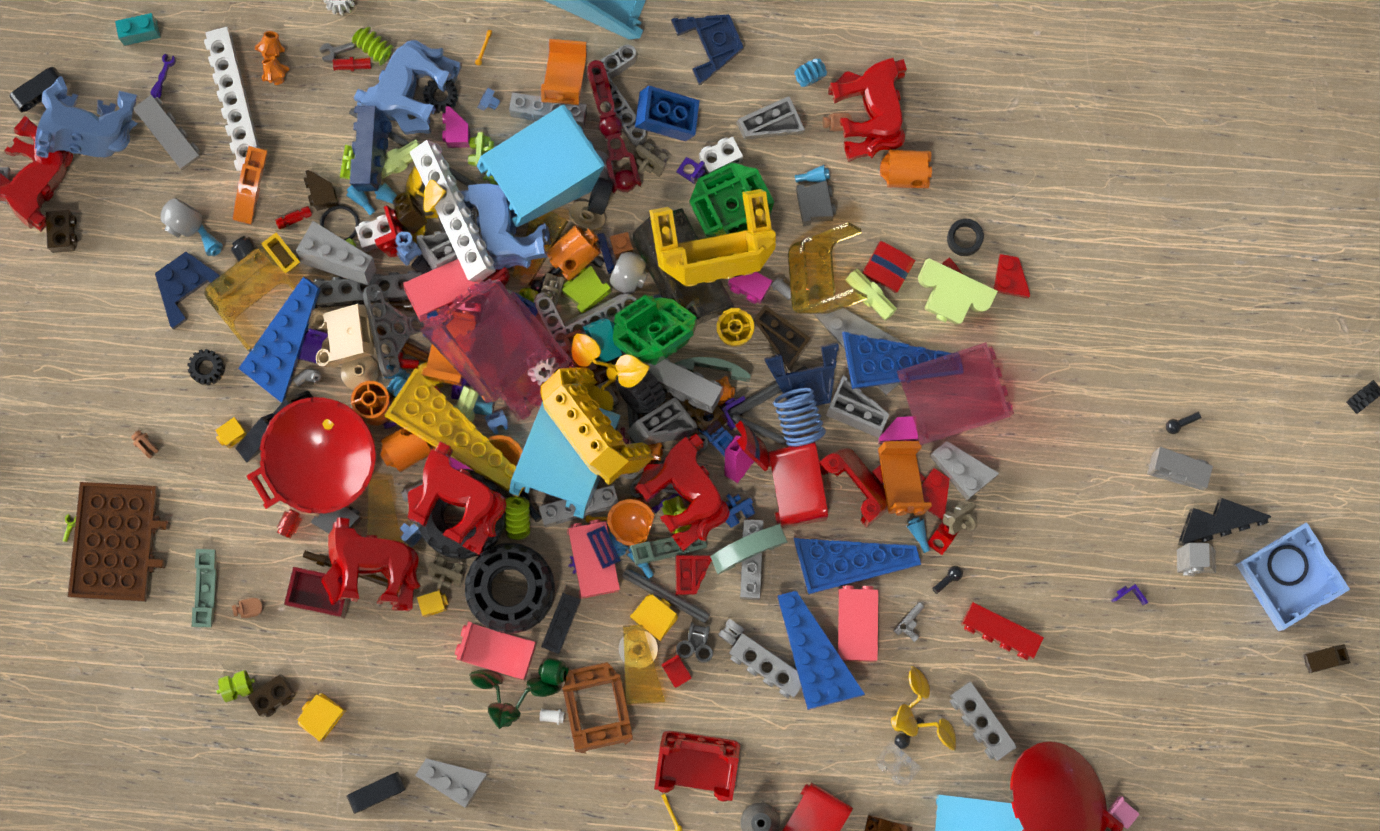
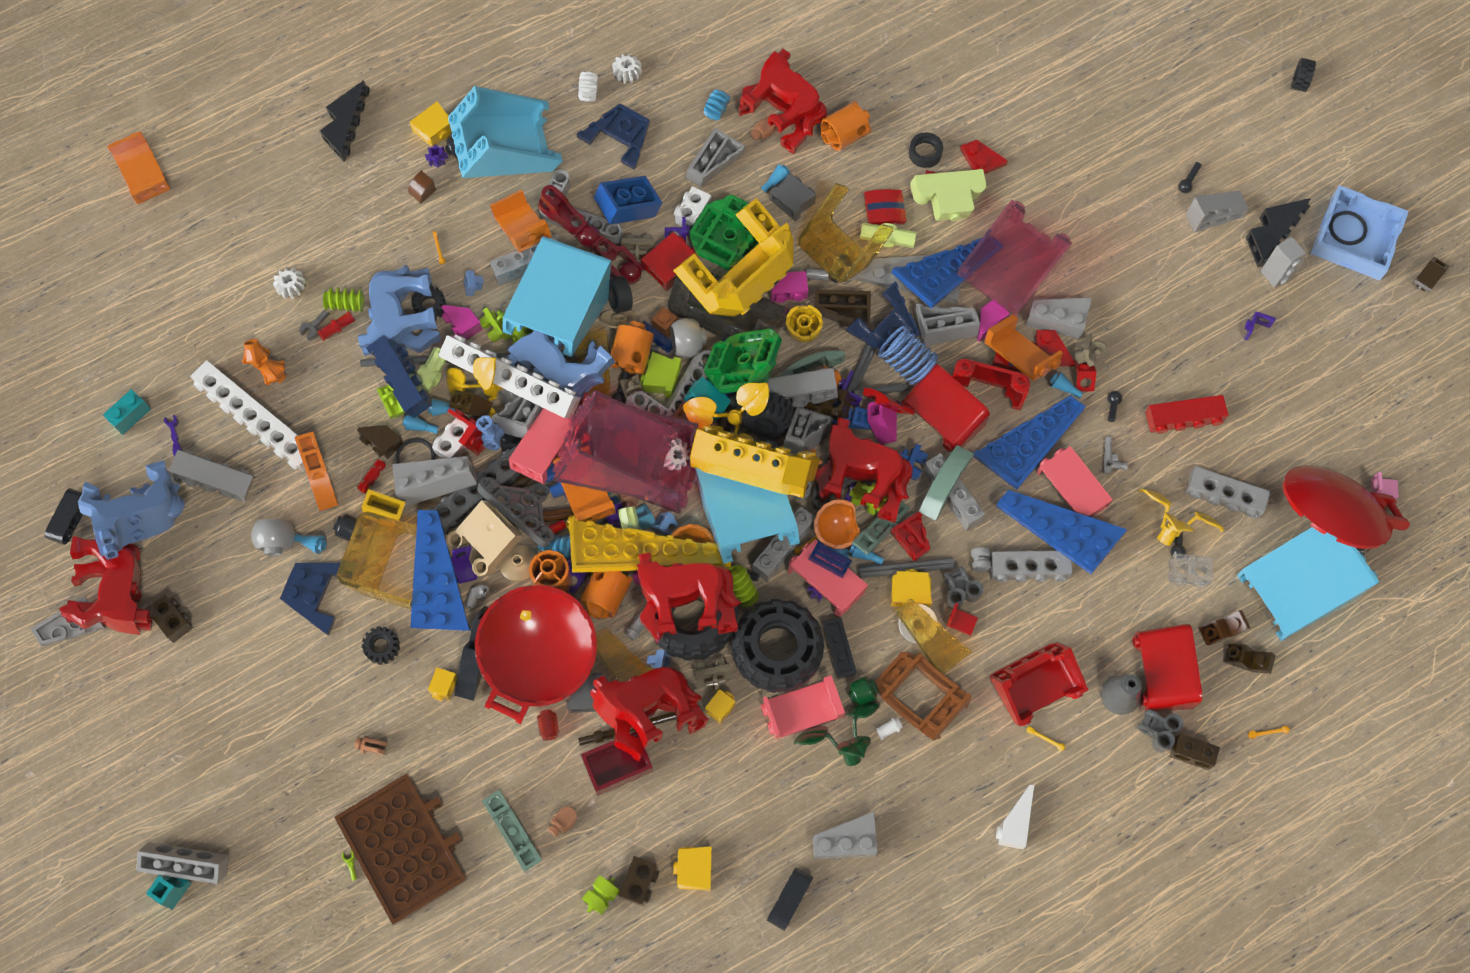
camera: 40 degrees left, 10 degrees down
(666, 190) = (665, 258): none -> red brick

